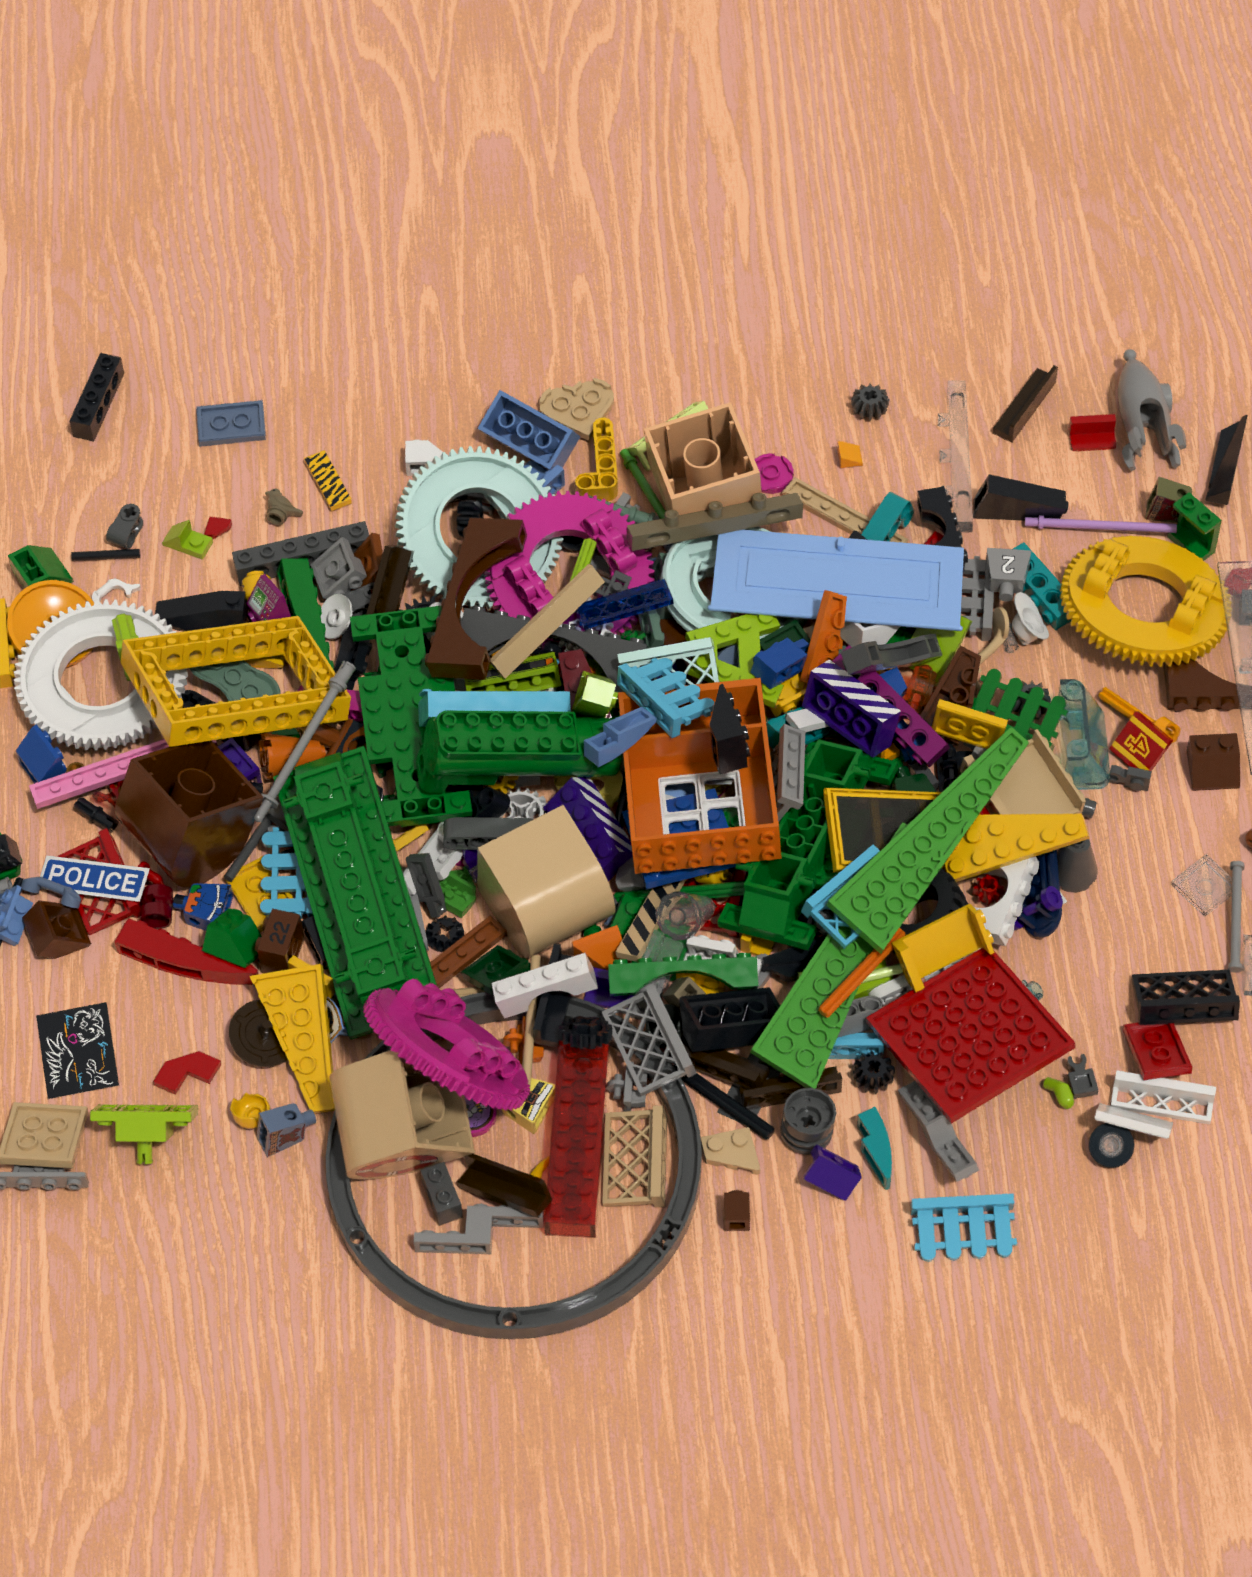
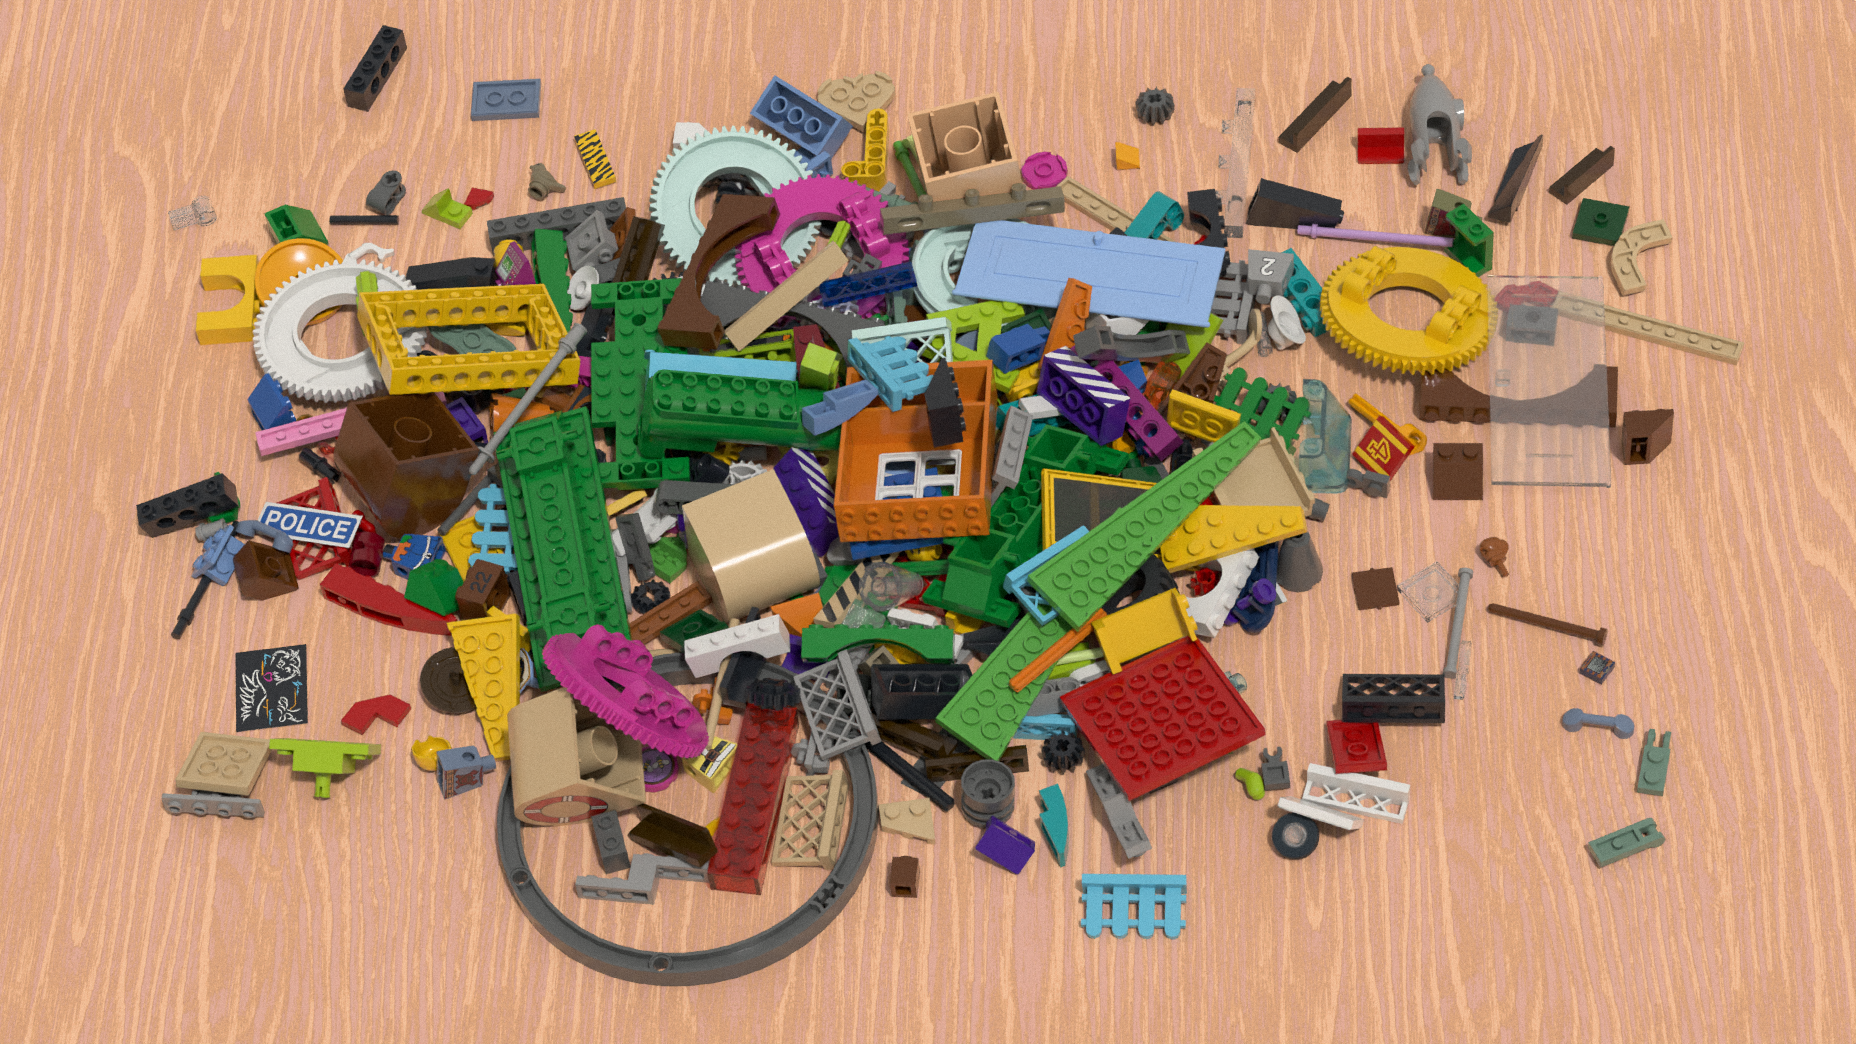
camera: 10 degrees right, 5 degrees down
(1150, 885) = (1375, 588): none -> reddish brown piece

